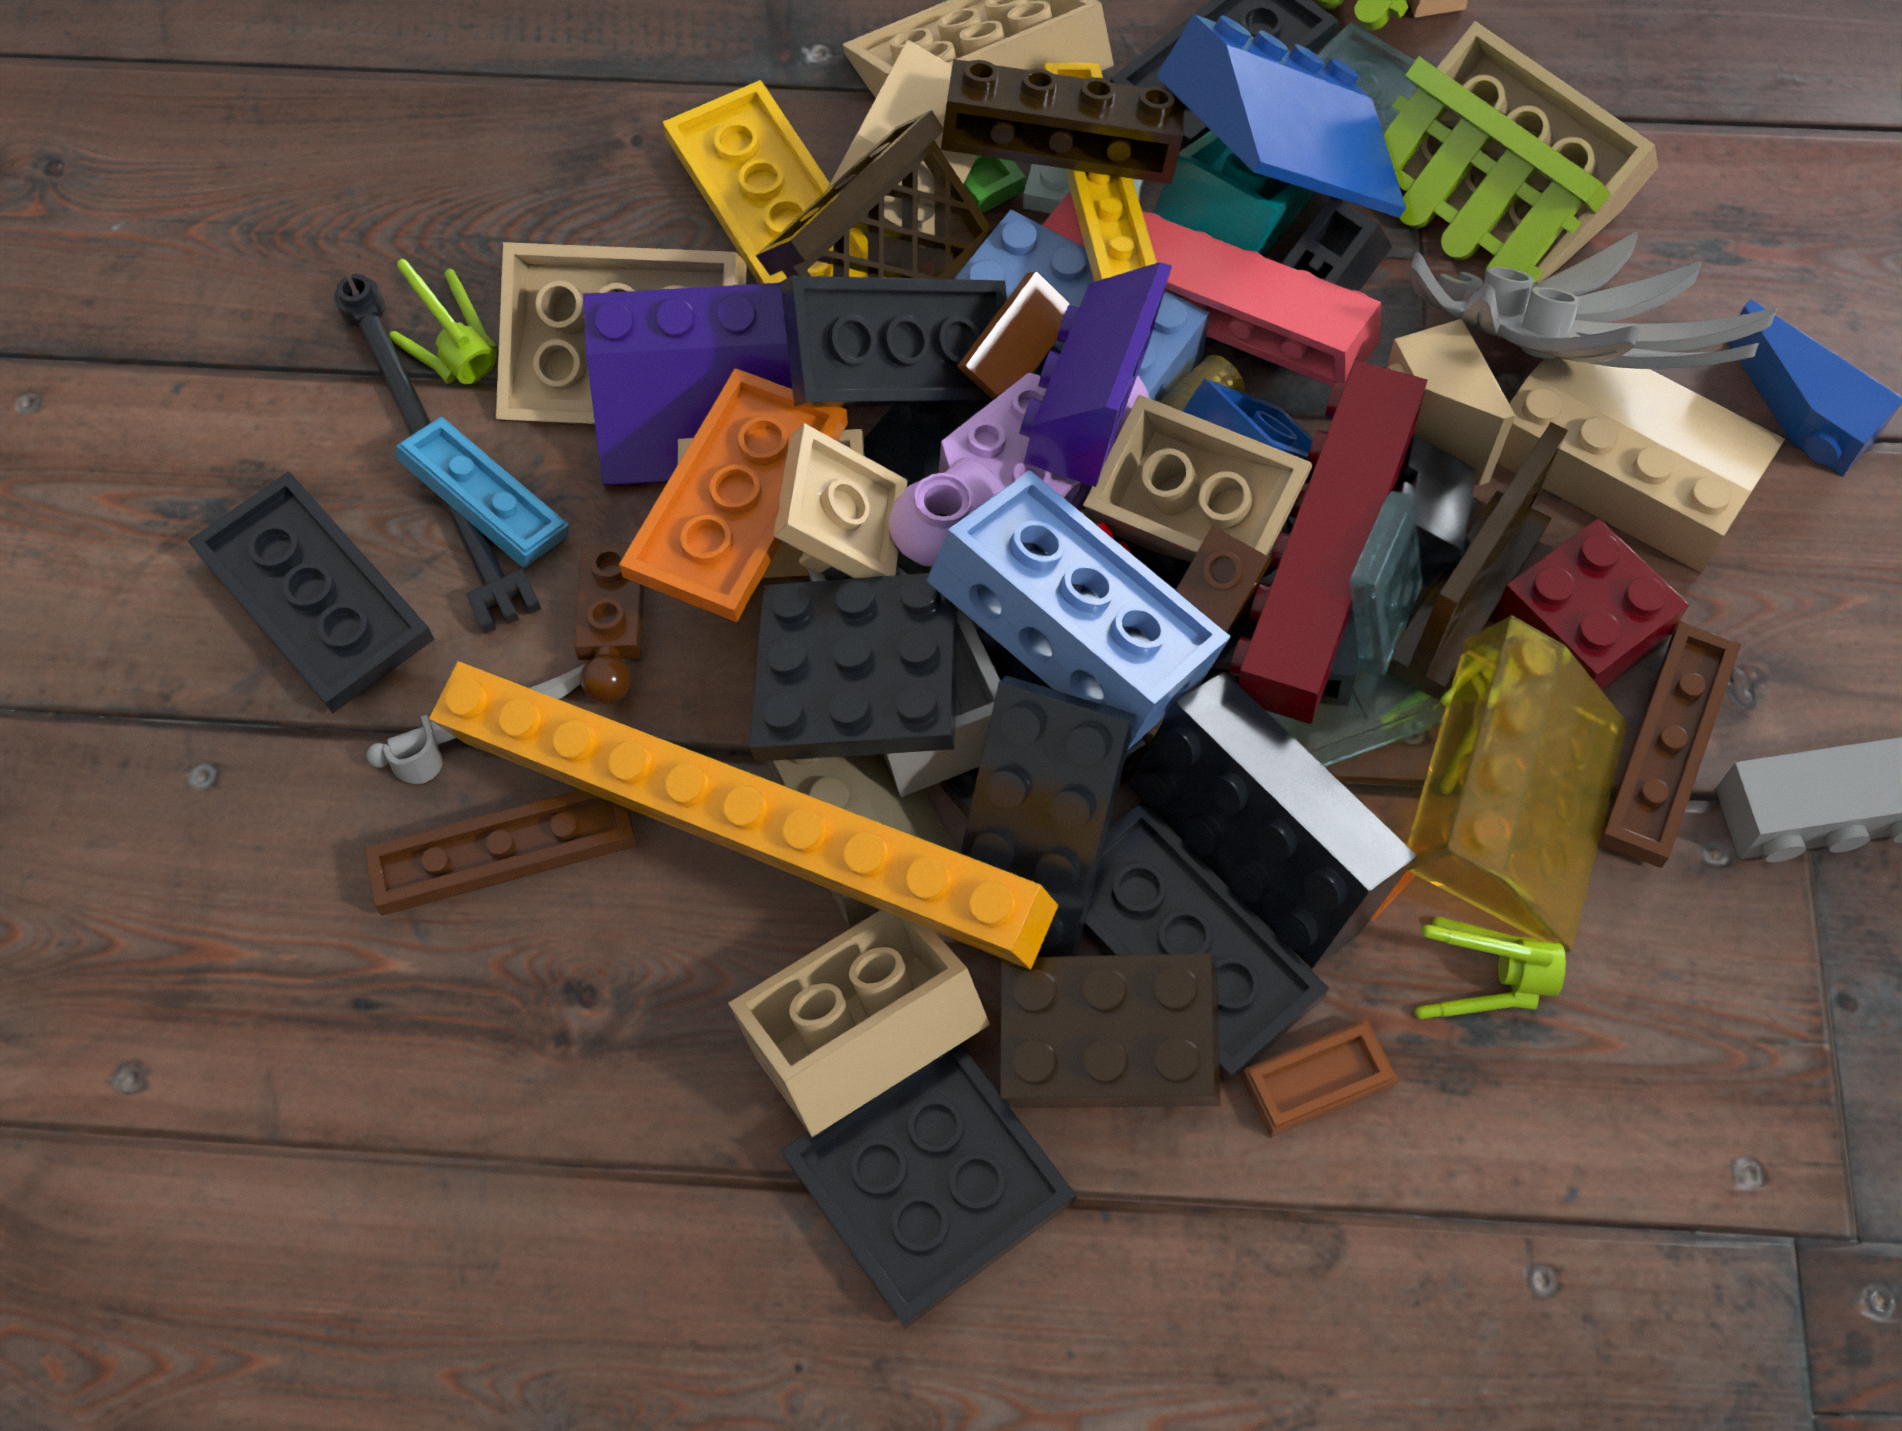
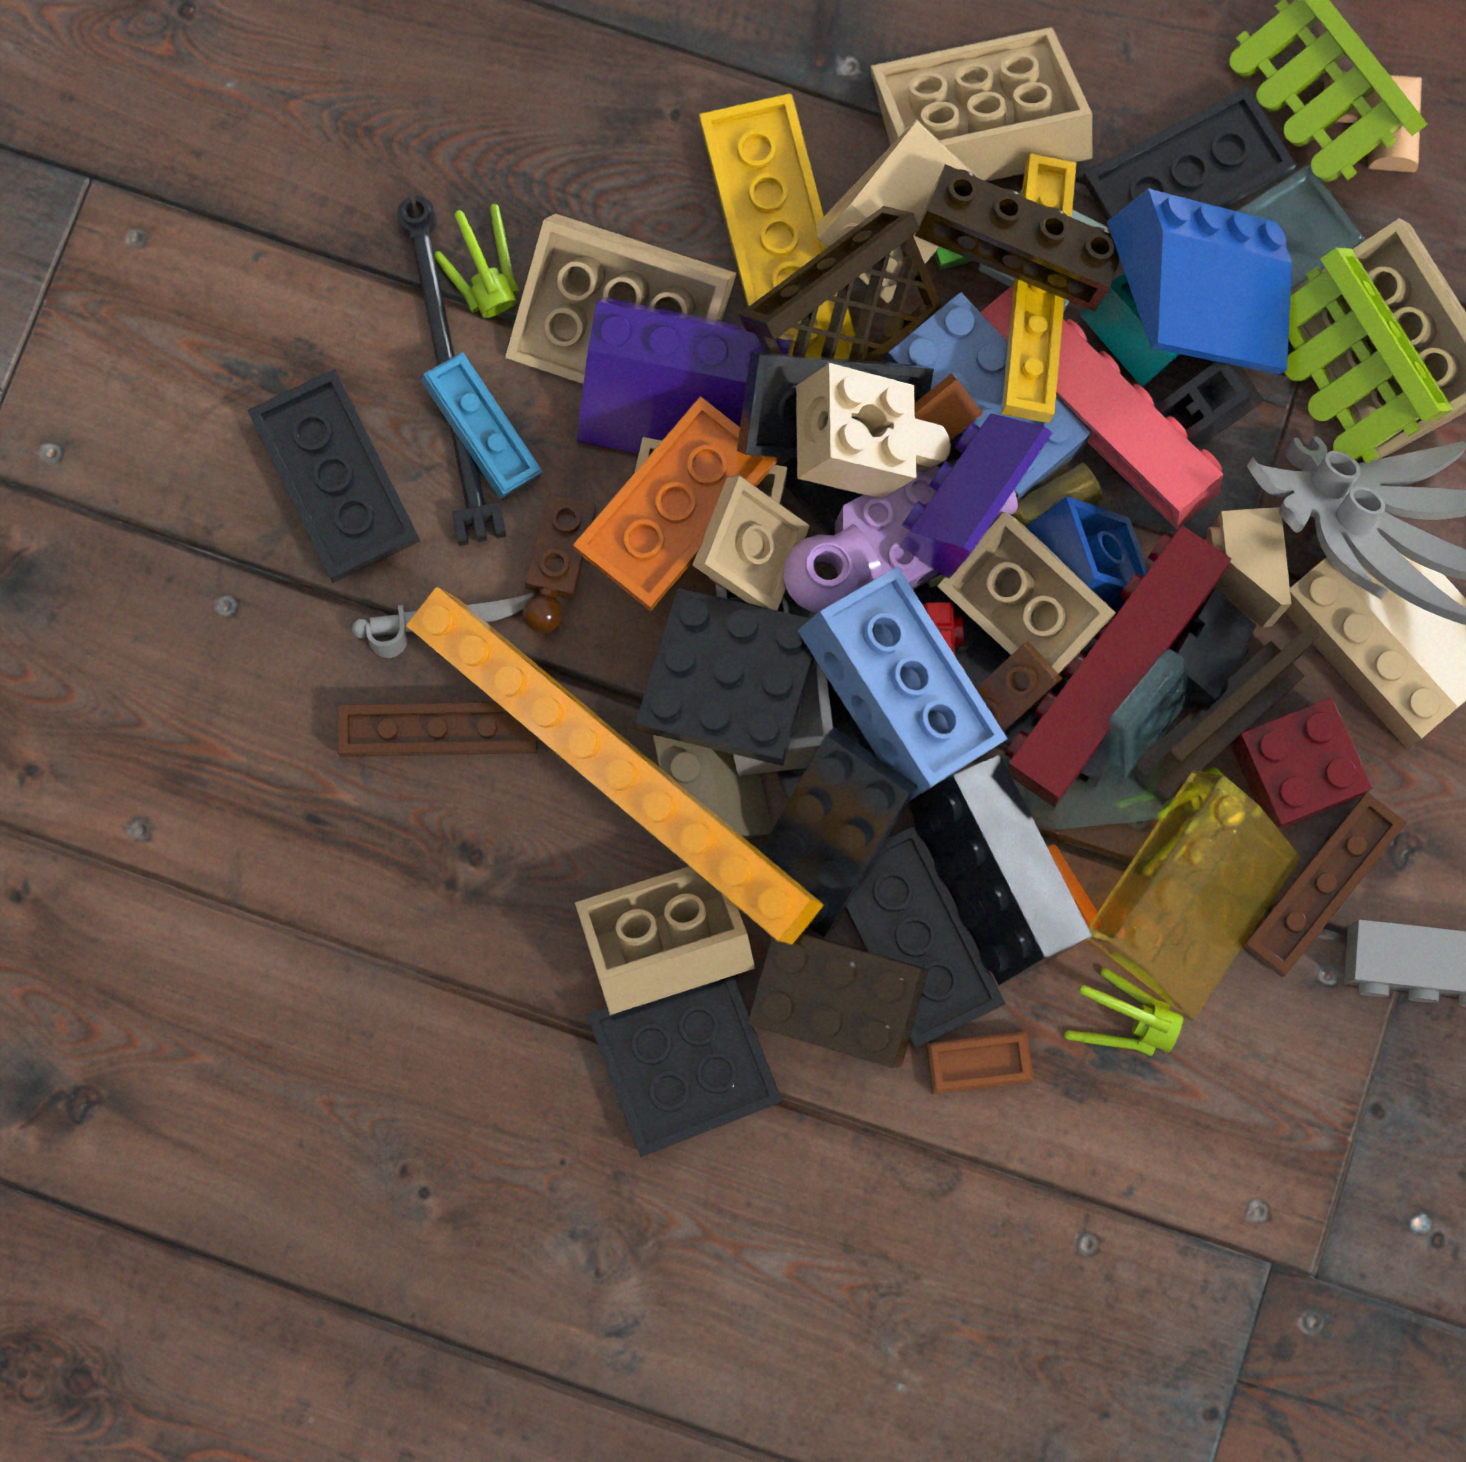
camera: 10 degrees right, 15 degrees up
(940, 339) = (876, 447): none -> tan brick

